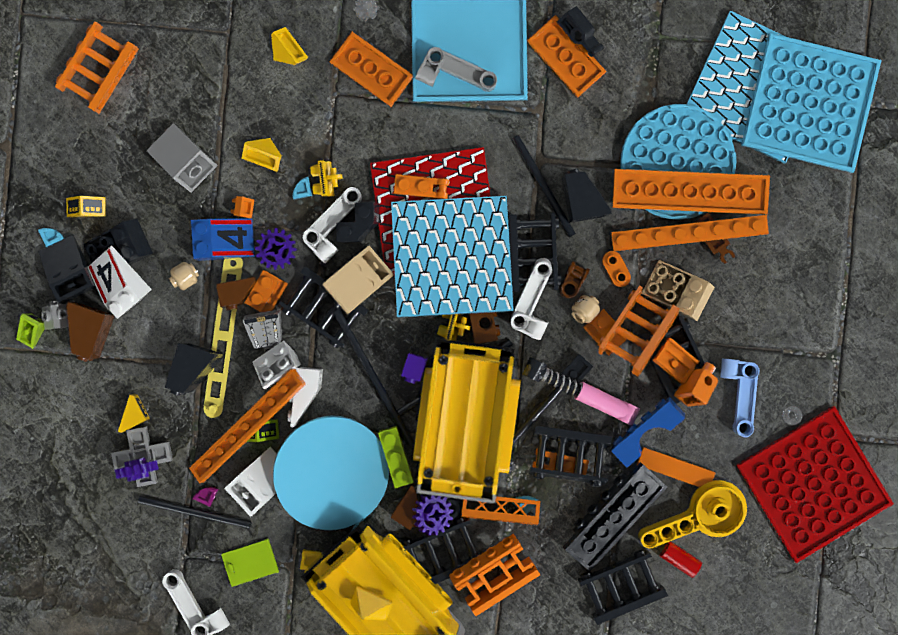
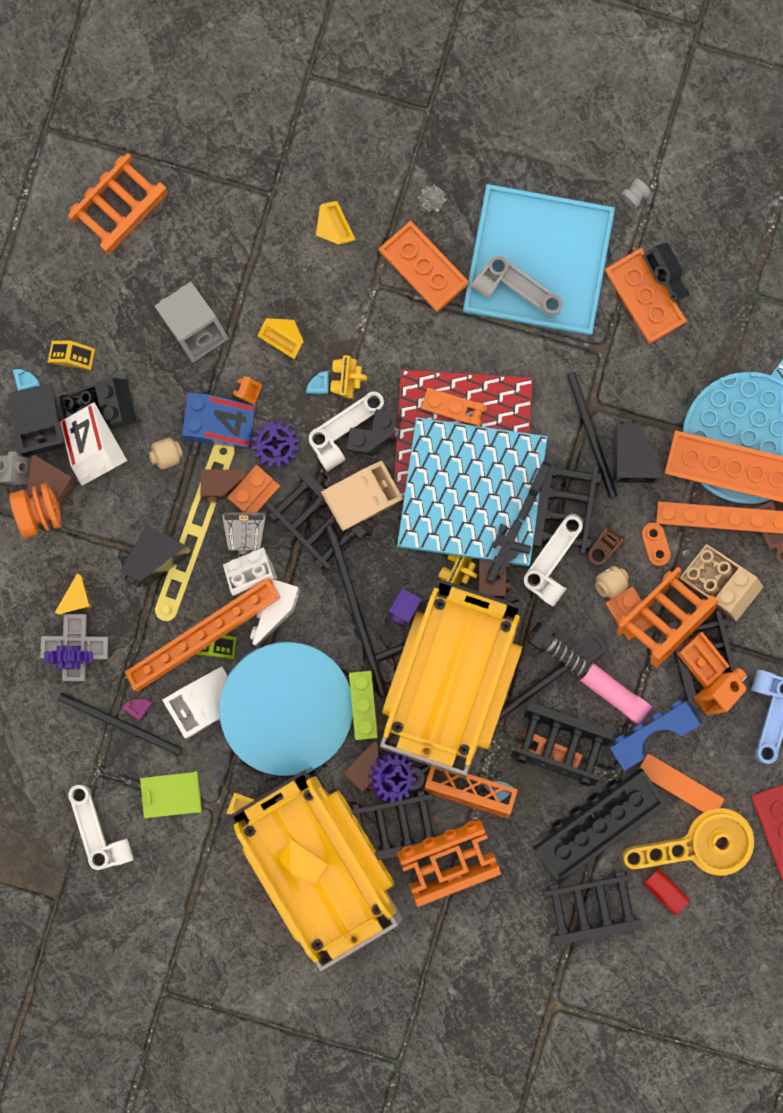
camera: 10 degrees right, 5 degrees down
(77, 352) = (35, 510): none -> orange wheel
(493, 301) = (508, 551): none -> black piece
(504, 245) = (534, 489): none -> black piece

